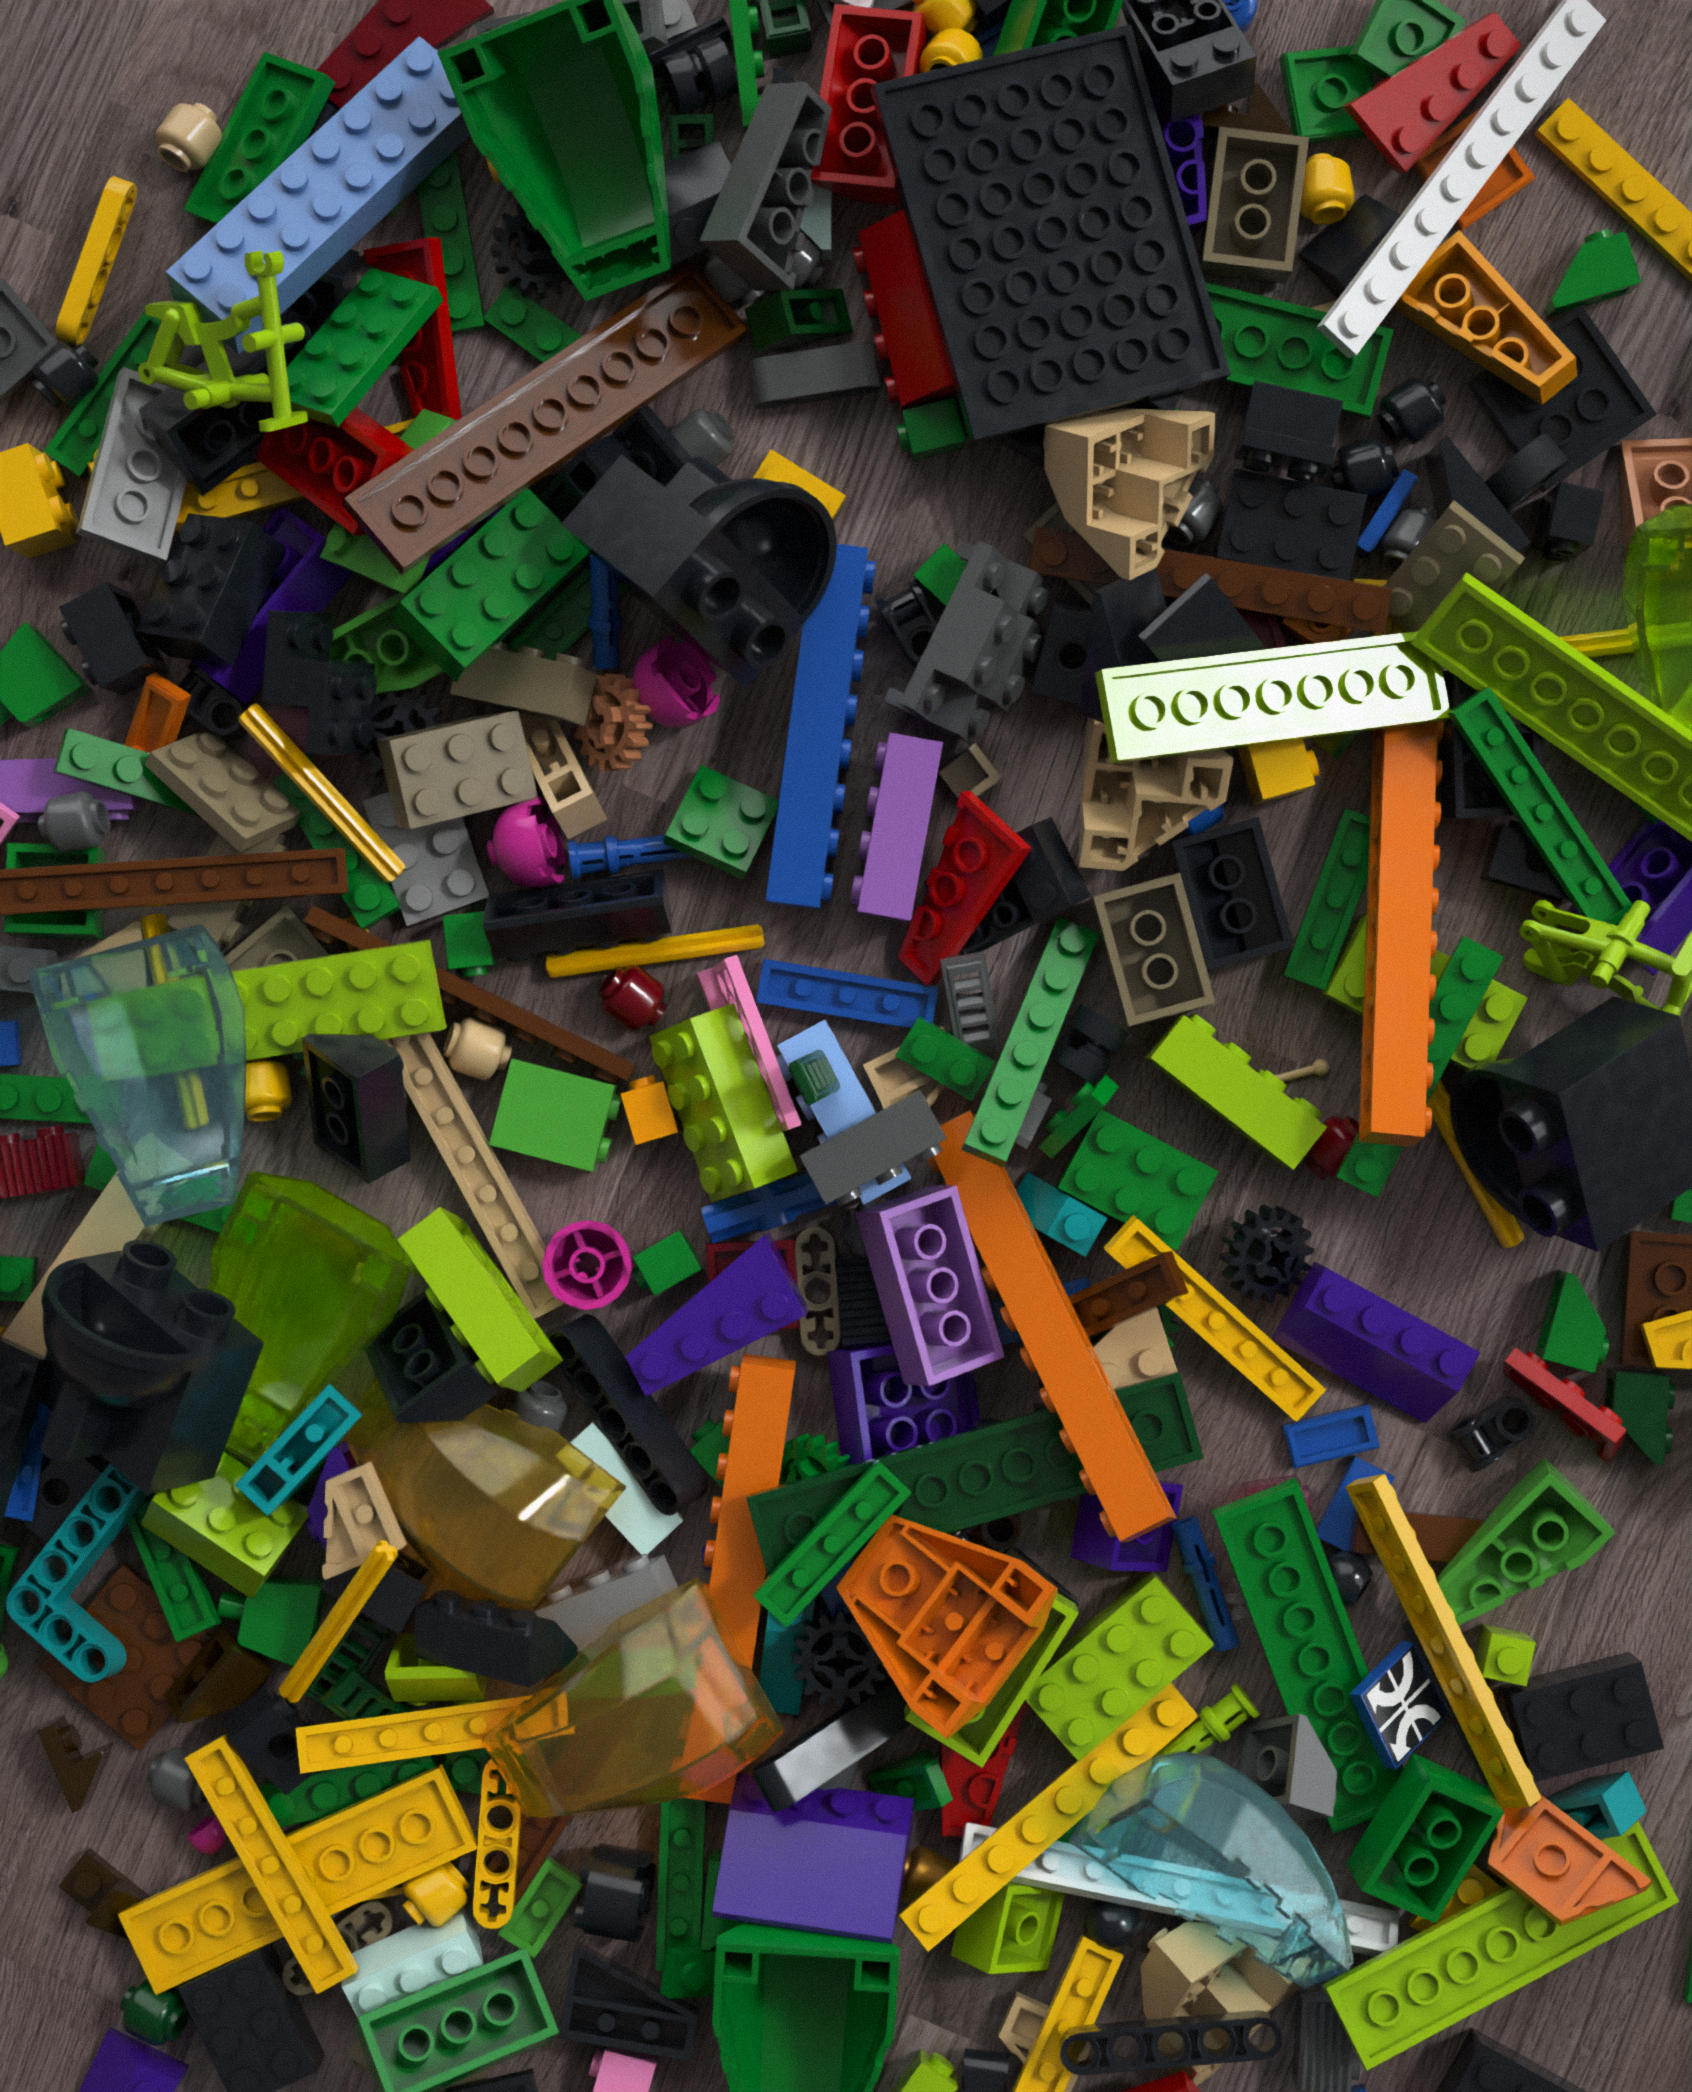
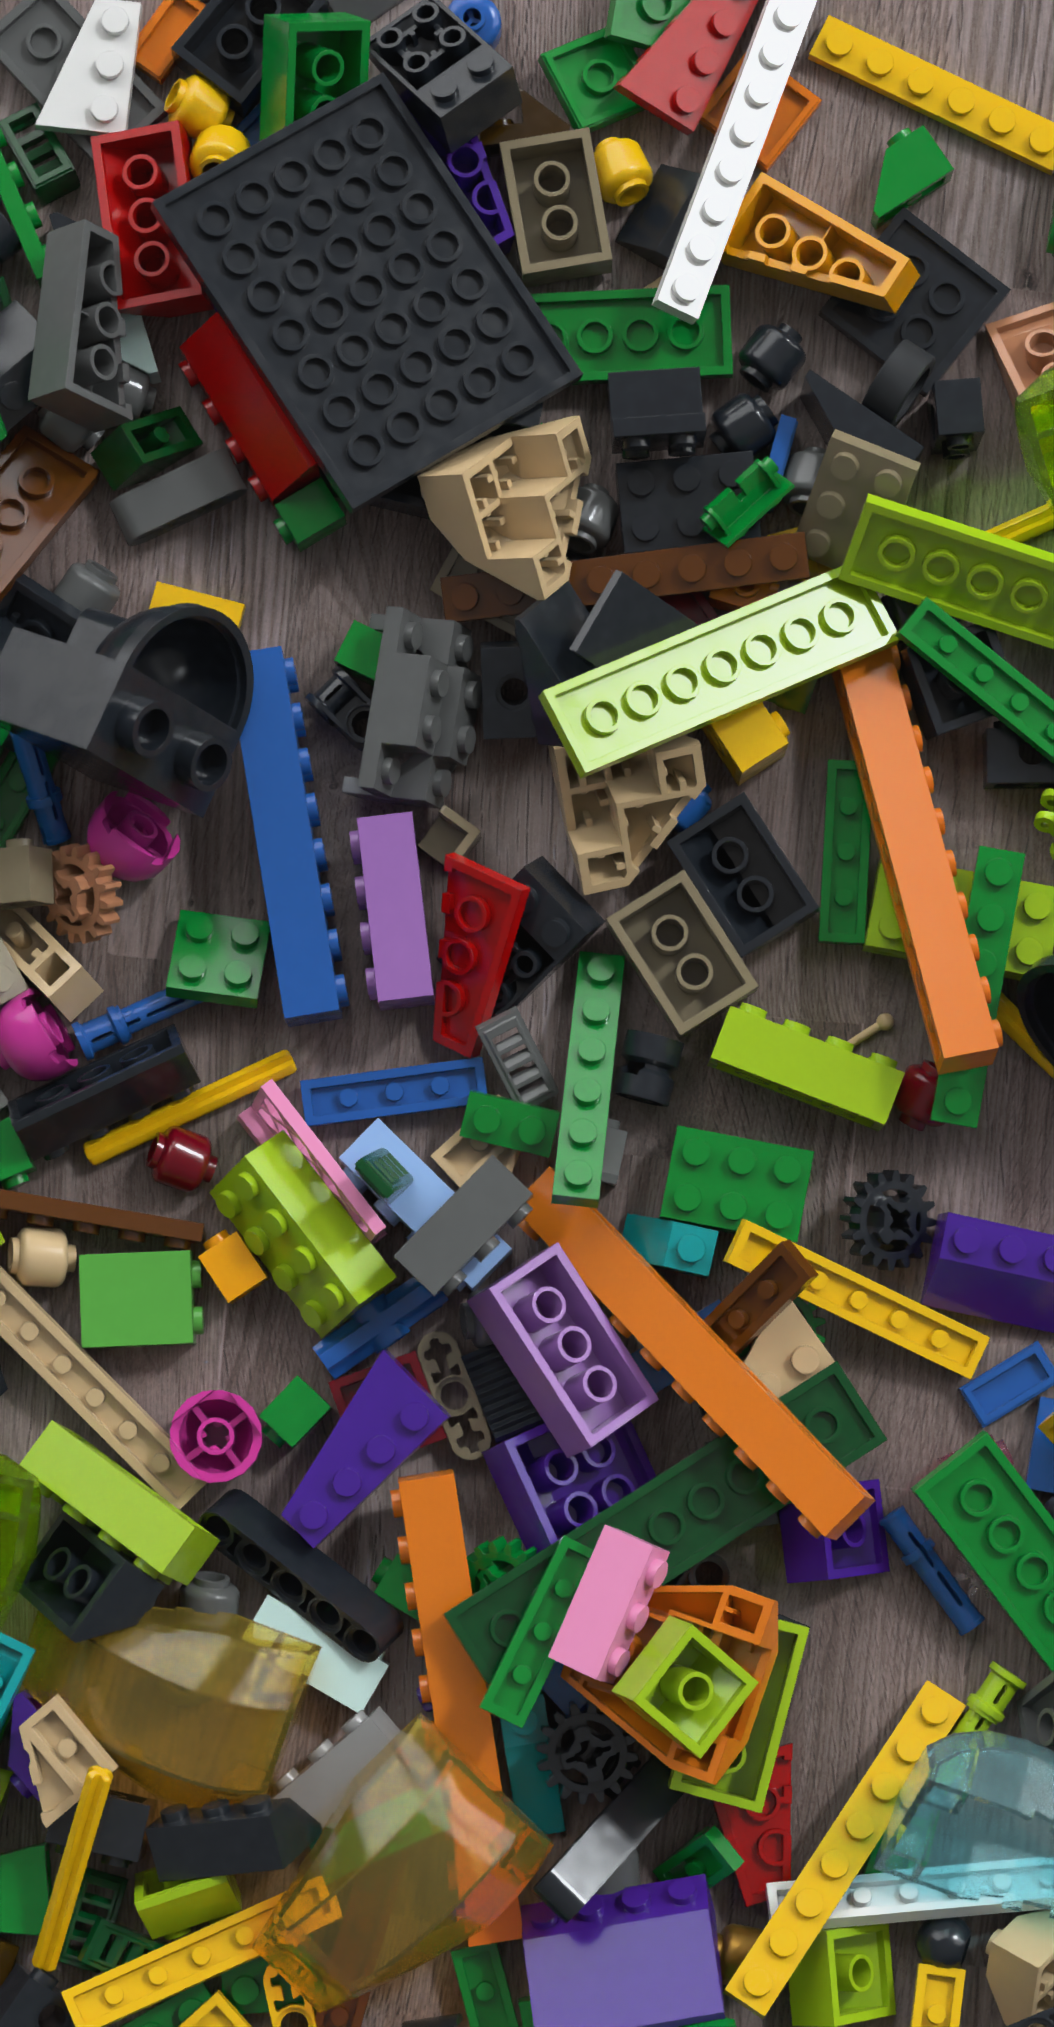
camera: 20 degrees left, 5 degrees down
(902, 1541) = (610, 1605): none -> bright pink brick
(948, 1640) = (685, 1686): none -> lime slope
(1087, 1104) = (663, 1124): green plate -> none
(1117, 1664) = (866, 1678): lime brick -> none
(1330, 553) = (731, 515): none -> green hinge

